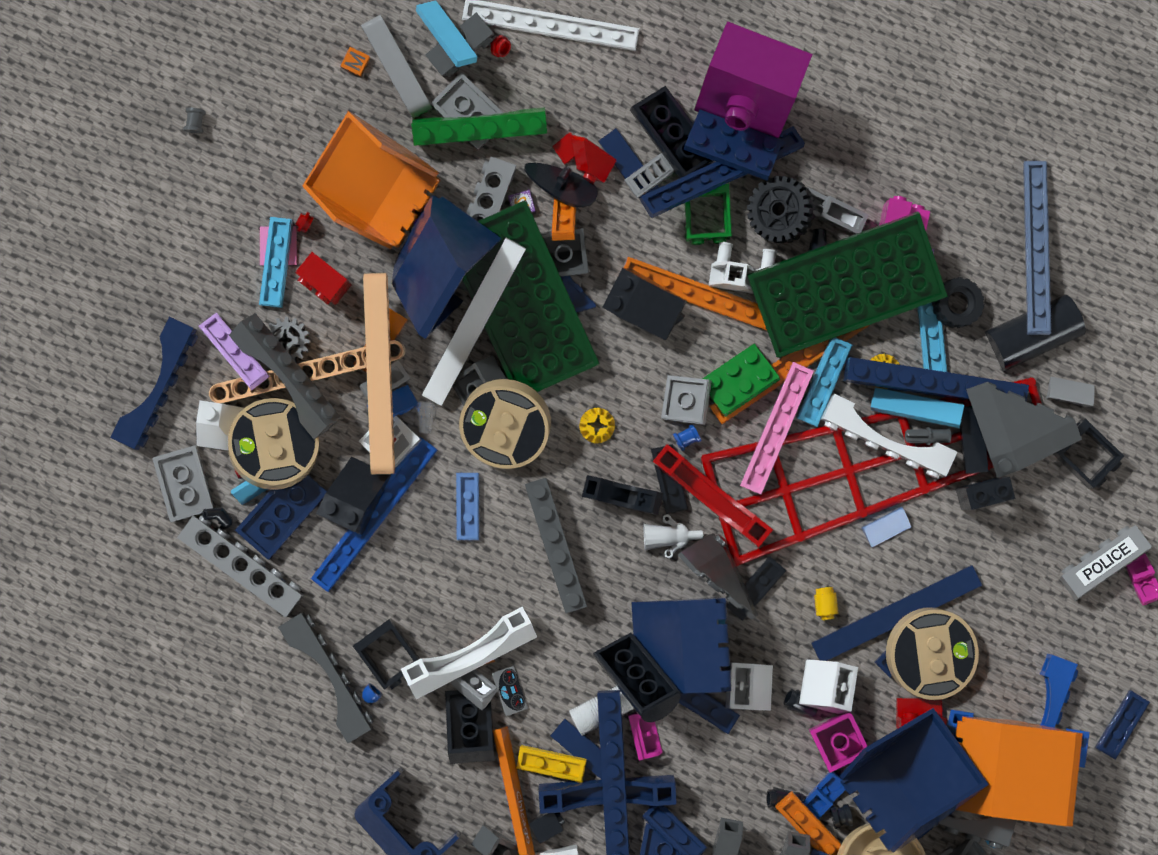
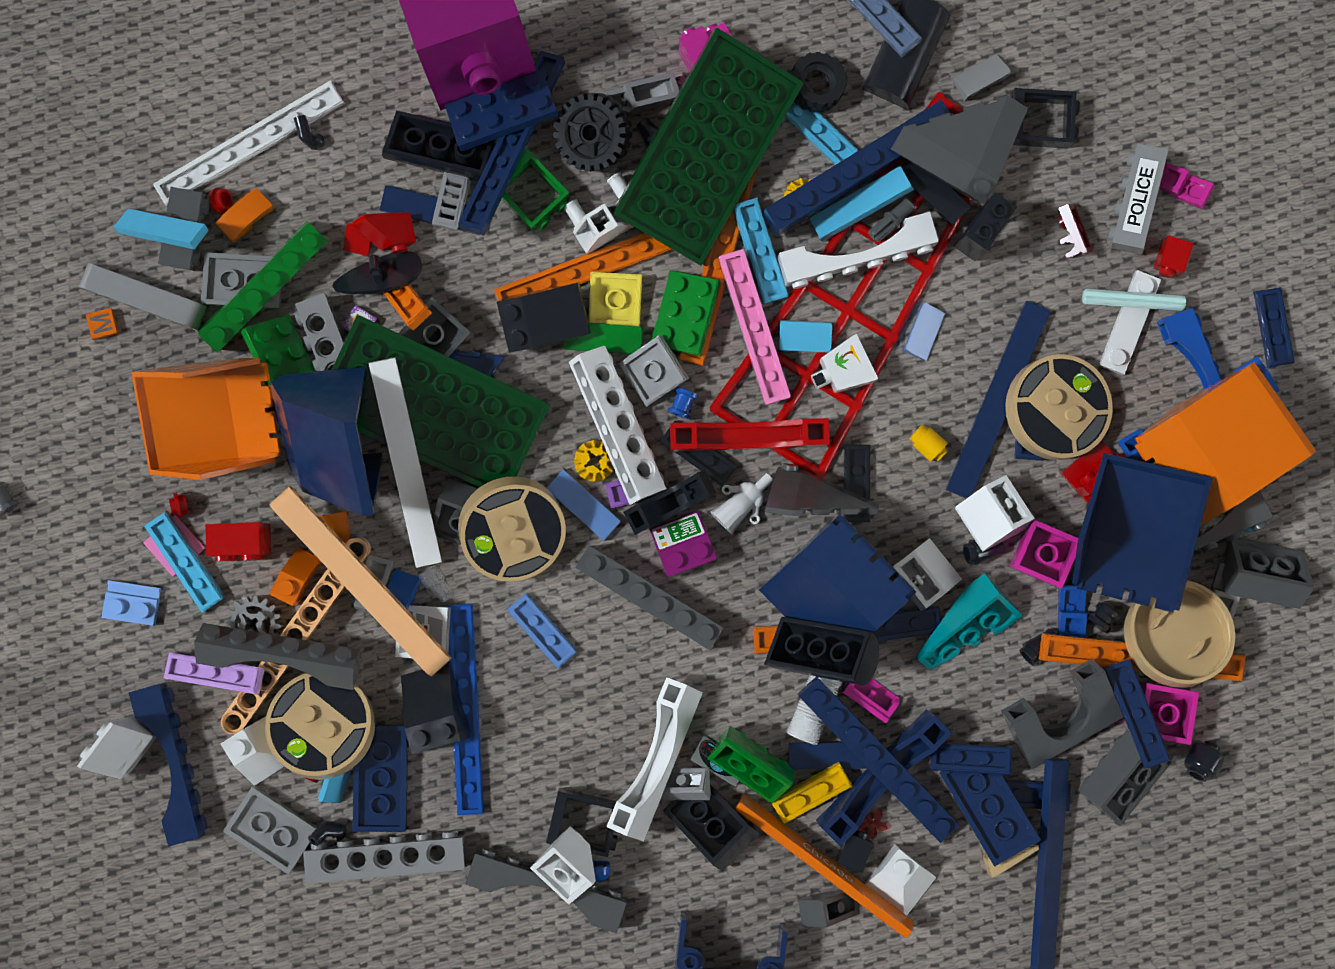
camera: 45 degrees left, 0 degrees up
(133, 347) = (117, 748): none -> white slope
(219, 259) = (131, 603): none -> light blue plate
(339, 334) = (295, 577): none -> orange slope
(353, 672) = (567, 866): none -> white slope
(457, 176) = (279, 346): none -> green plate
(507, 68) = (243, 214): none -> orange slope
(528, 711) = (752, 764): none -> green slope
(565, 448) = (583, 505): none -> medium blue tile
(574, 818) = (873, 823): none -> clear red plant
(591, 51) = (305, 135): none -> black arm
(595, 461) = (616, 494): none -> medium lavender tile
(607, 529) = (682, 543): none -> magenta slope
(607, 636) = (763, 638): none -> orange tile
(622, 420) = (606, 417): none -> white brick
(674, 354) = (615, 338): none -> green slope
(701, 331) = (615, 298): none -> light yellow tile
(758, 740) = (975, 613): none -> teal wedge
(805, 463) = (805, 336): none -> medium azure slope
(813, 506) = (845, 367): none -> white torso
(1028, 638) = (1128, 326): none -> white plate
(1044, 626) = (1134, 299): none -> light aqua axle
(1047, 539) = (1070, 220): none -> plate
(1094, 620) = (1172, 257): none -> red brick

